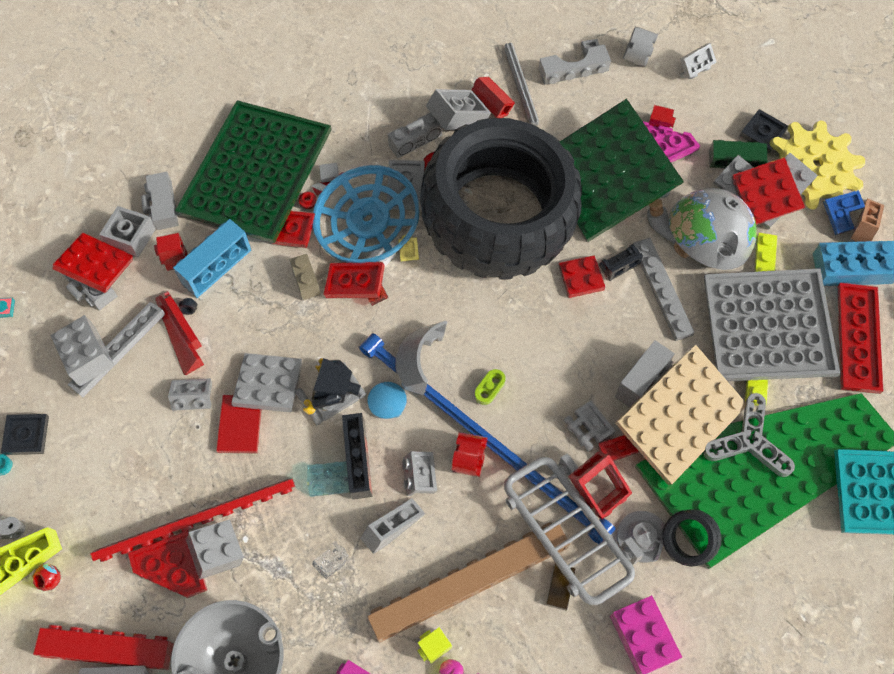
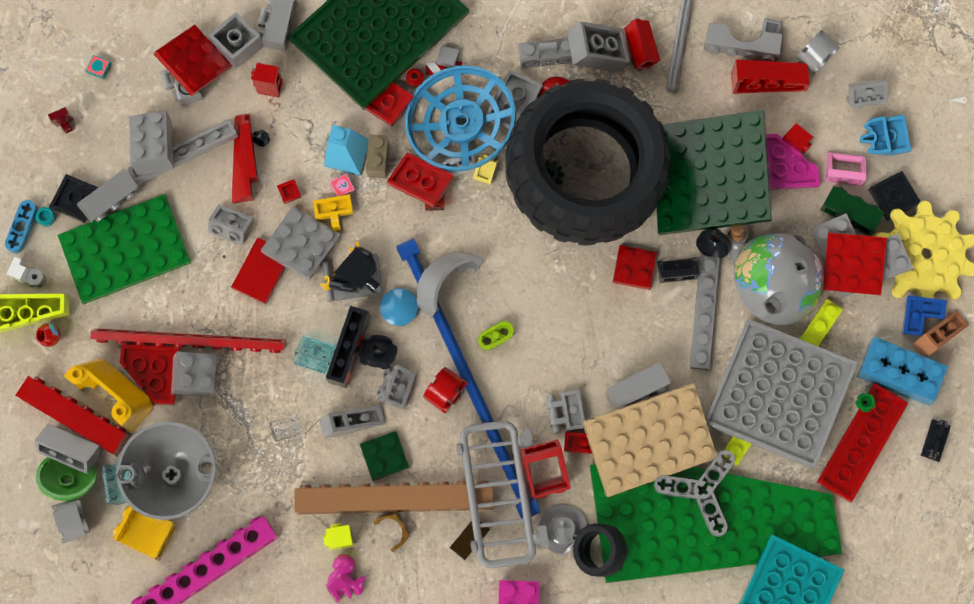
camera: 25 degrees right, 10 degrees up
(57, 417) = (108, 196): none -> light grey brick
(93, 462) = (124, 249): none -> green plate
(163, 606) = (131, 403): none -> yellow windscreen
(212, 258) = (301, 102): dark azure brick -> none
(235, 341) = (289, 191): none -> red plate
(273, 284) = (346, 150): none -> medium azure slope
(284, 317) = (342, 185): none -> tile
(284, 339) = (333, 208): none -> yellow plate
(382, 455) = (370, 357): none -> black plate
(439, 544) = (384, 456): none -> dark green plate
(478, 599) = (405, 534): none -> pearl gold cap
(609, 81) = (768, 77): none -> red wedge
(641, 231) = (713, 247): none -> black piece
(713, 132) = (843, 176): none -> bright pink tile
(731, 88) = (887, 136): none -> dark azure plate
(847, 297) = (865, 407): none -> green plate

